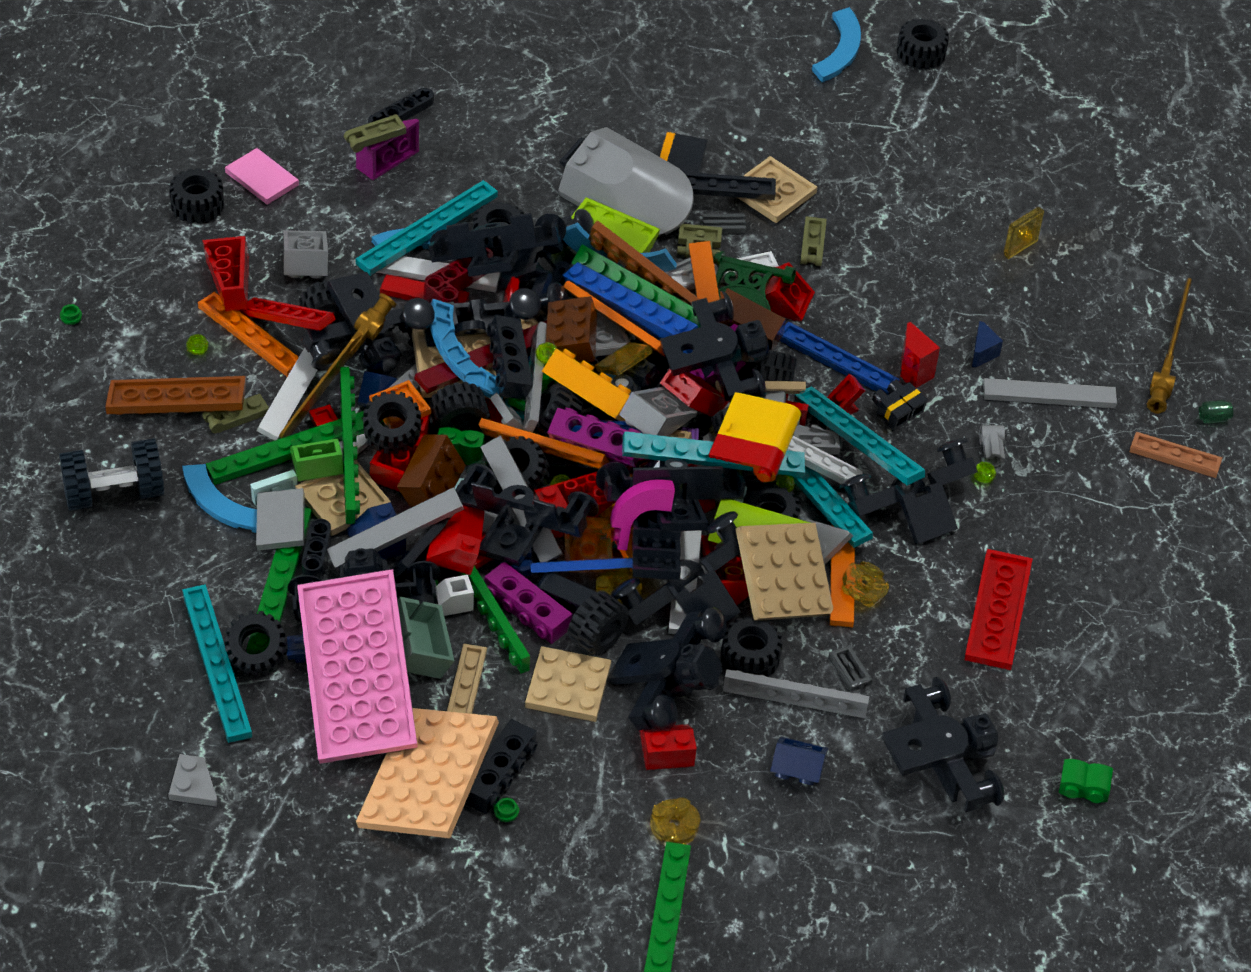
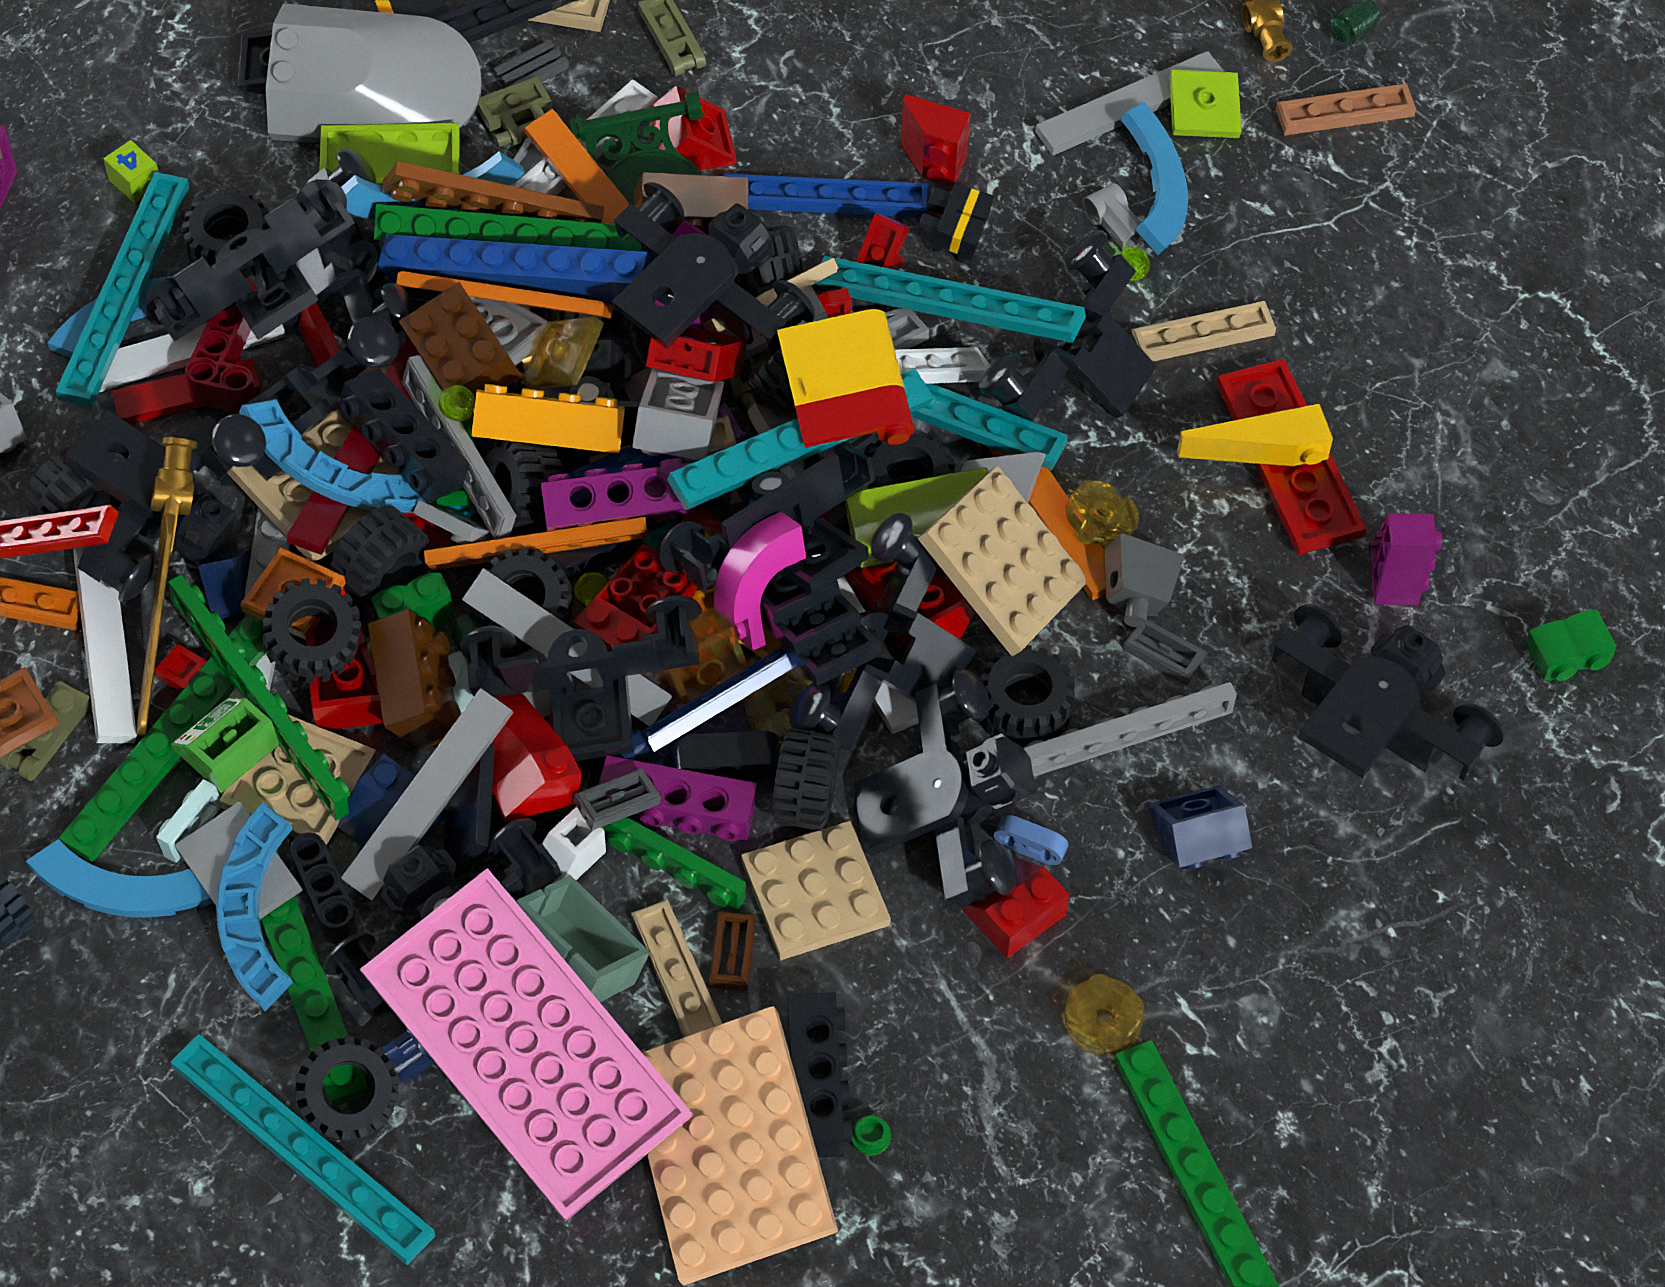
camera: 30 degrees left, 10 degrees up
(266, 534) = (239, 906): none -> dark azure tile
(473, 173) = (130, 170): none -> lime brick
(491, 584) = (622, 803): none -> dark grey tile
(507, 690) = (729, 979): none -> reddish brown tile
(701, 718) = (1031, 840): none -> medium blue beam
(861, 623) = (1140, 577): none -> dark grey torso
(987, 345) = (1003, 73): dark blue slope -> none
(988, 590) = (1273, 438): none -> yellow slope
(999, 525) = (1205, 331): none -> tan tile
(1015, 683) = (1403, 558): none -> magenta wedge
(1037, 441) = (1167, 177): none -> dark azure tile
(1091, 412) = (1205, 103): none -> lime plate

